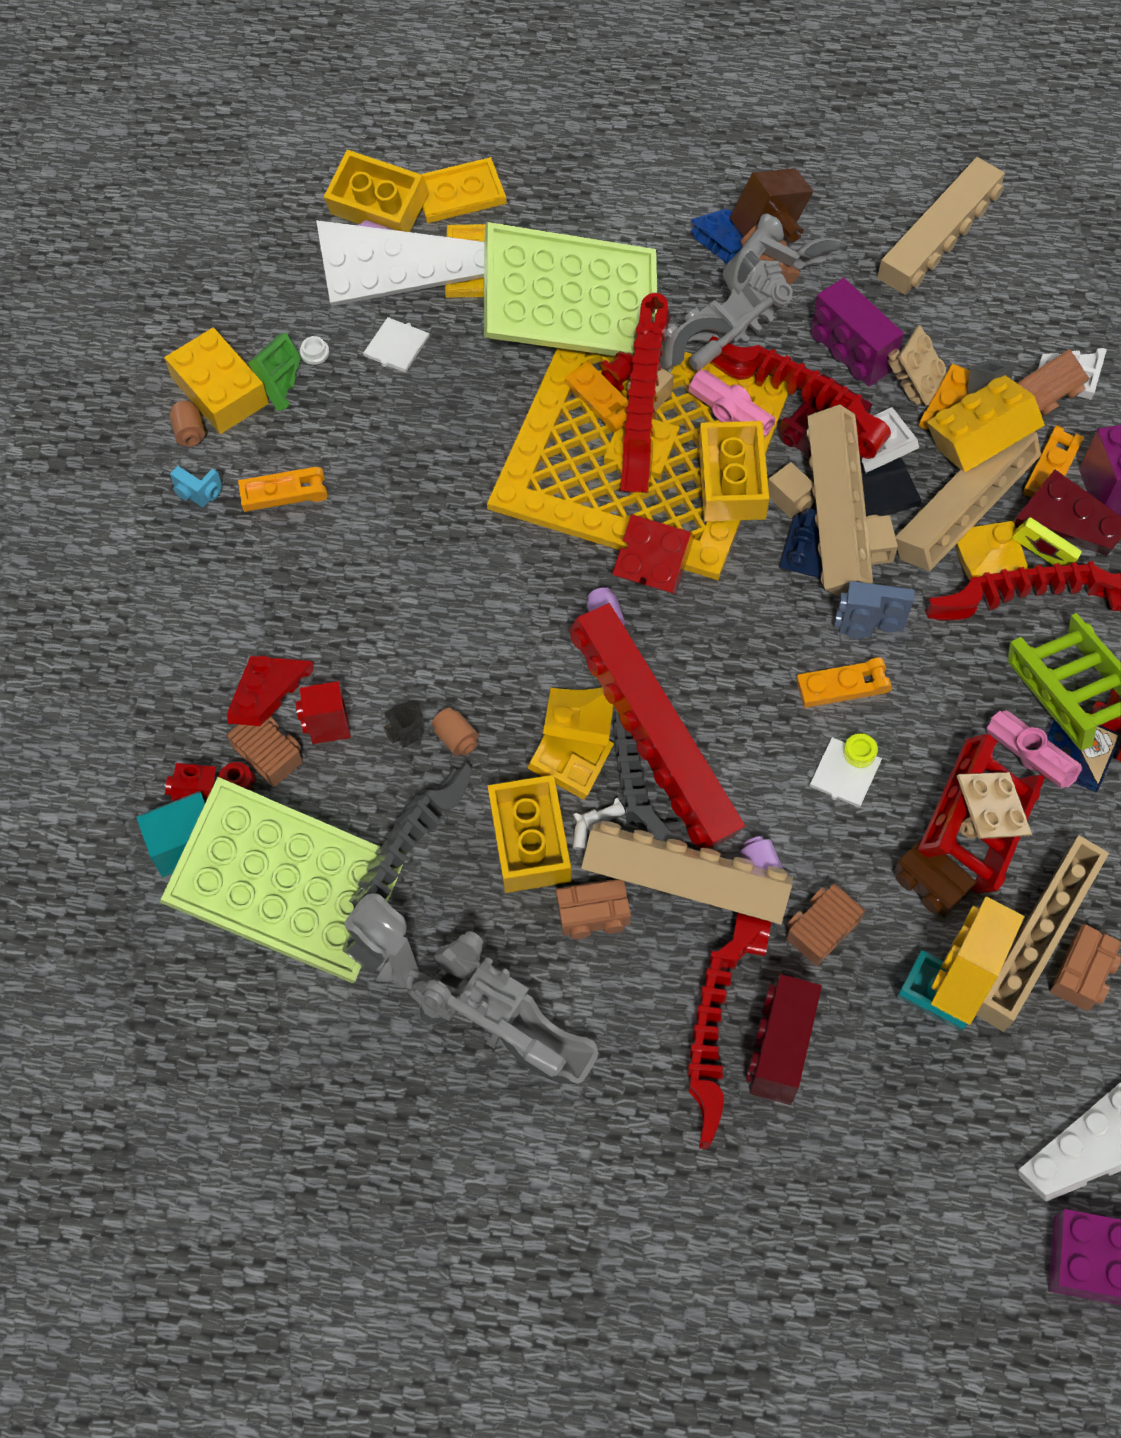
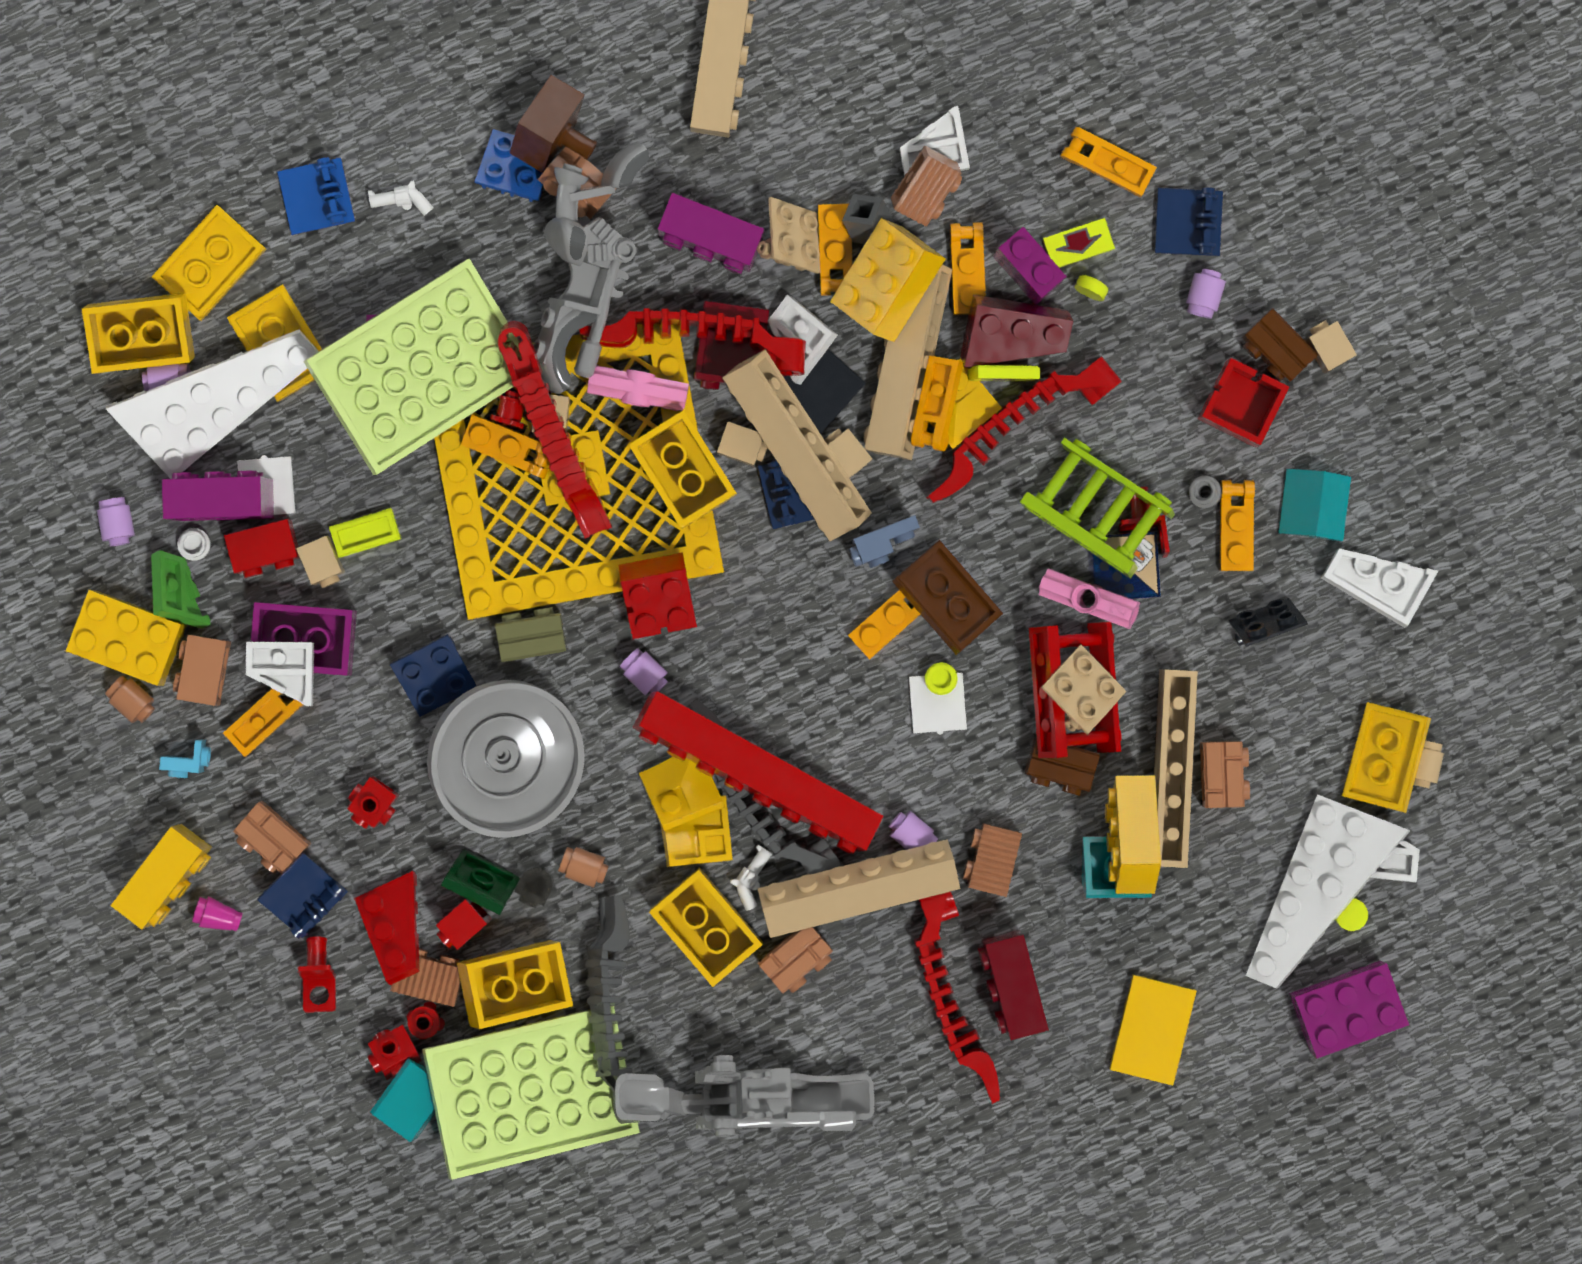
camera: 30 degrees left, 25 degrees up
(111, 548) = (162, 877): none -> yellow brick
(130, 606) = (216, 915): none -> dark pink cone
(176, 696) = (317, 974): none -> red bracket
(210, 627) = (302, 895): none -> dark blue hinge
(218, 574) = (271, 838): none -> nougat brick
(256, 432) = (202, 670): none -> nougat brick
(268, 305) = (115, 521): none -> lavender brick
(316, 588) = (382, 796): none -> red brick
(318, 440) = (283, 667): none -> white wing
(333, 783) = (514, 984): none -> yellow brick
(348, 445) = (327, 628): none -> magenta brick
(354, 318) = (217, 496): none -> magenta brick
(359, 688) = (481, 881): none -> dark green tile
(364, 374) = (262, 547): none -> red piece
(401, 405) = (321, 562): none -> tan brick
(432, 526) = (433, 675): none -> dark blue hinge
(447, 607) = (505, 758): none -> light grey container
(449, 408) = (365, 533): none -> neon yellow tile
(529, 538) = (530, 636): none -> olive brick
(567, 185) = (316, 196): none -> blue hinge
(629, 214) = (403, 197): none -> white piece
(896, 1171) = (1152, 1029): none -> yellow tile
(903, 688) = (947, 597): none -> reddish brown tile
(976, 534) = (936, 402): none -> light orange plate

